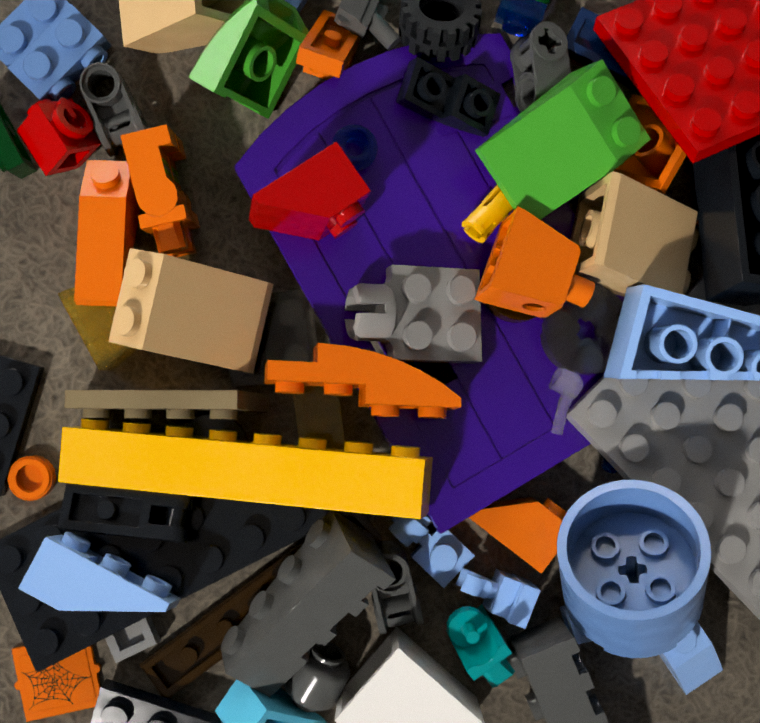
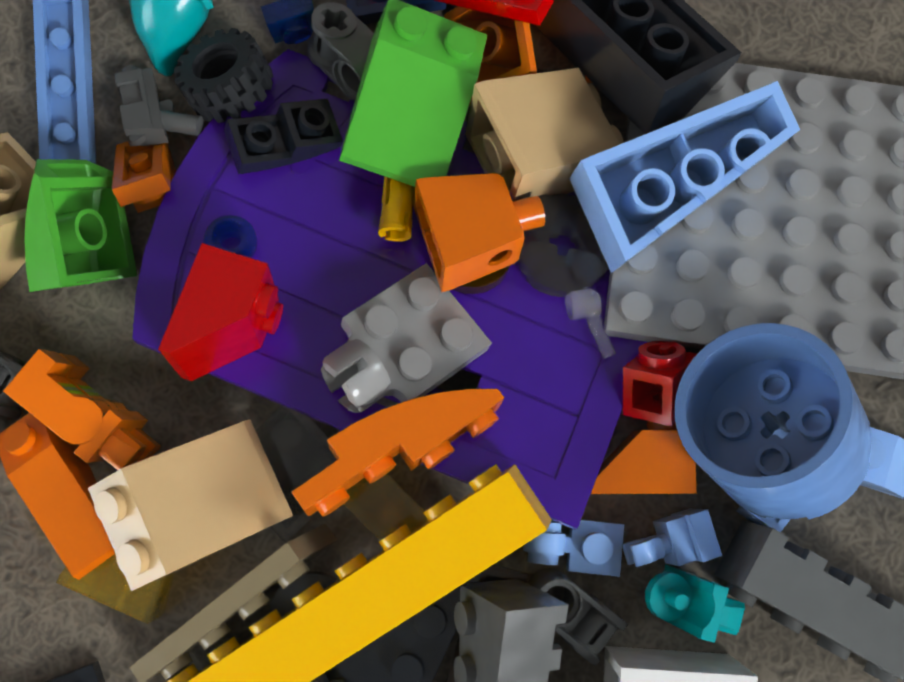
camera: 30 degrees left, 5 degrees down
(573, 474) = (653, 381): none -> red brick

